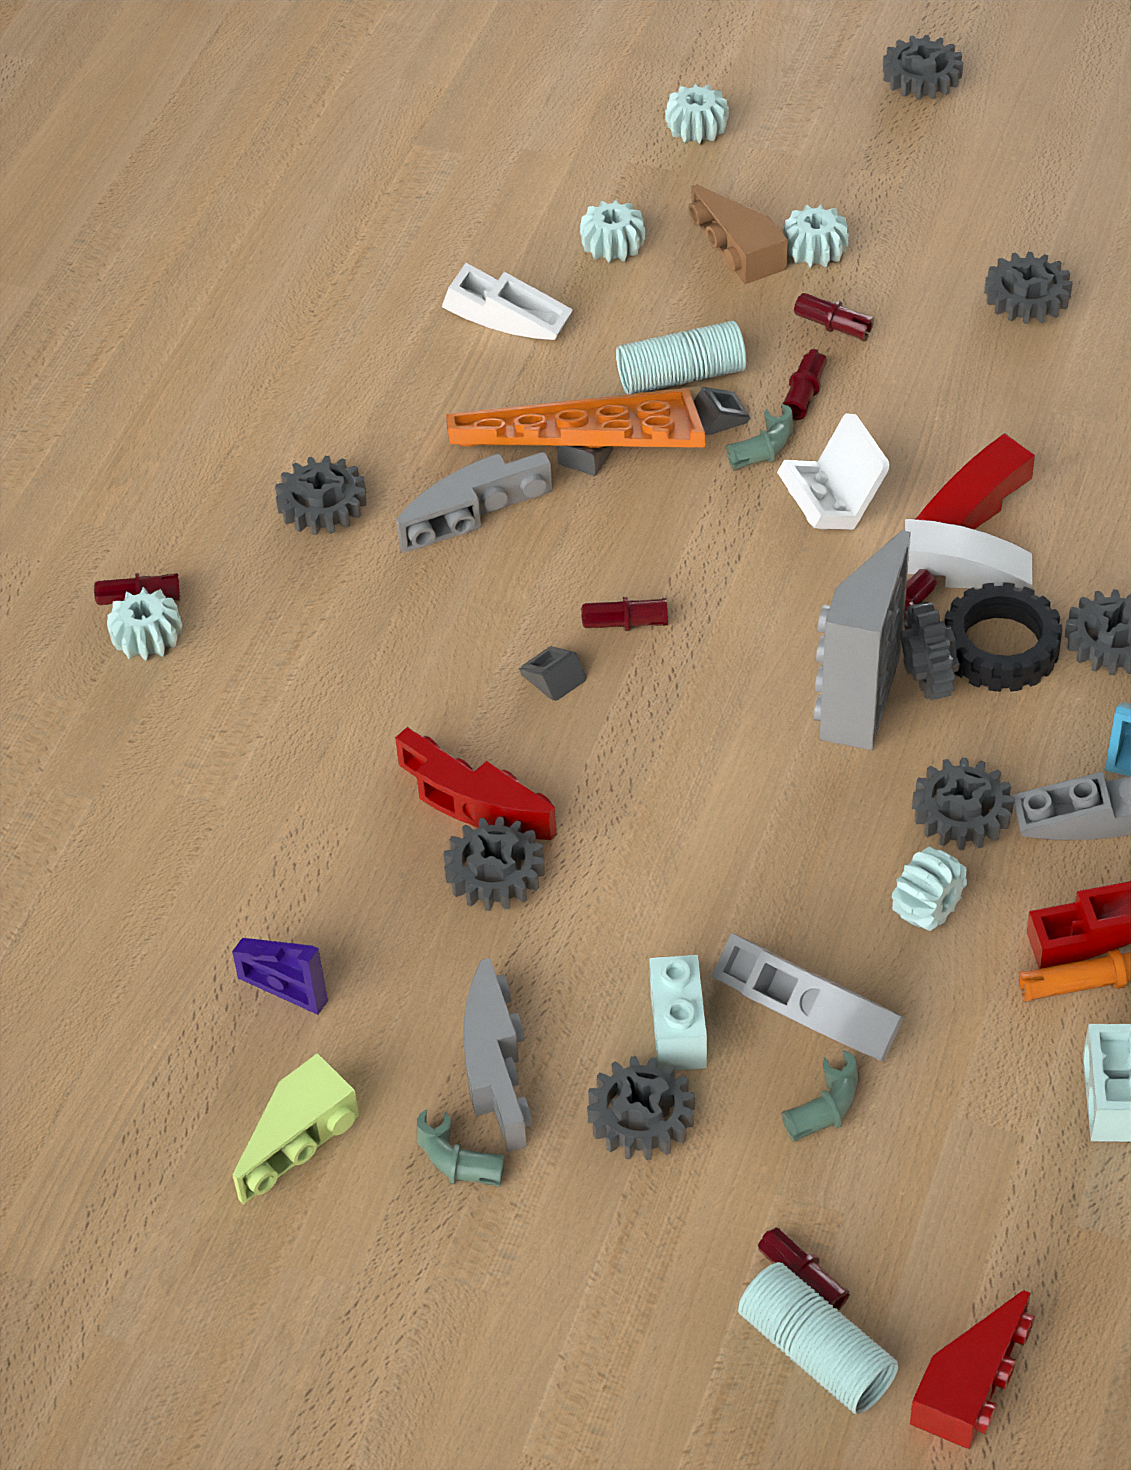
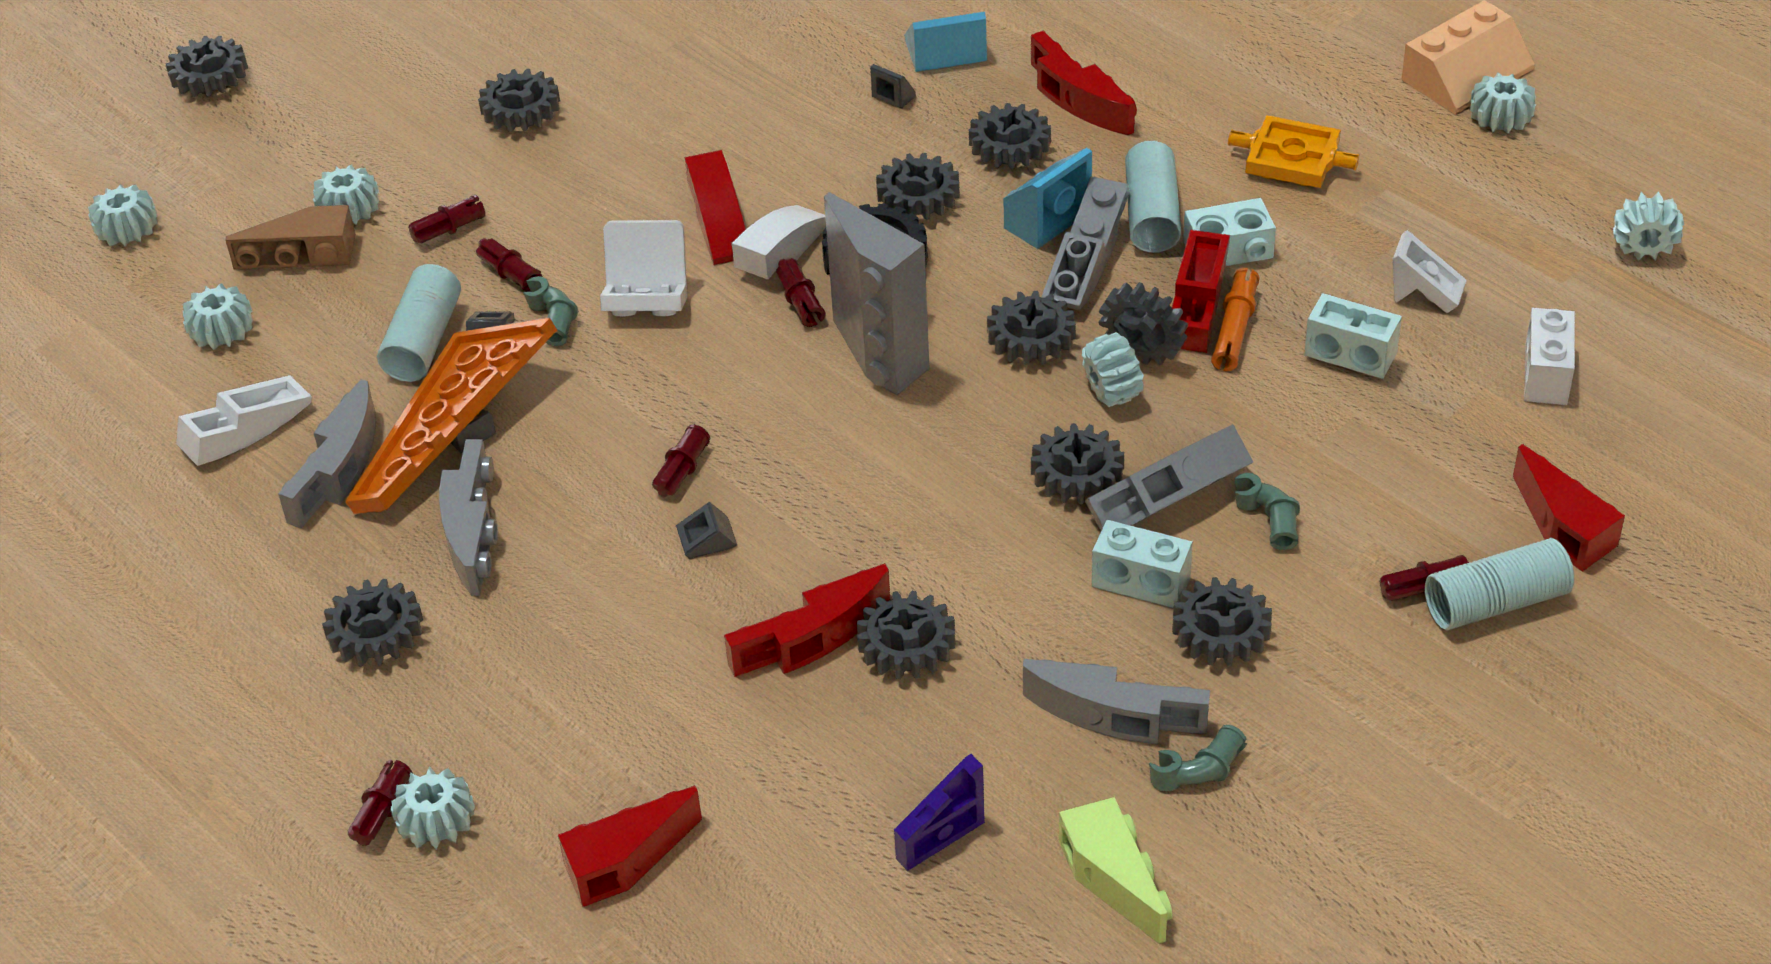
camera: 65 degrees left, 5 degrees down
(156, 765) = (623, 847): none -> red slope
(510, 382) = (342, 453): none -> light grey slope
(791, 912) = (1076, 462): none -> dark grey gear
(1003, 887) = (1145, 322): none -> dark grey gear

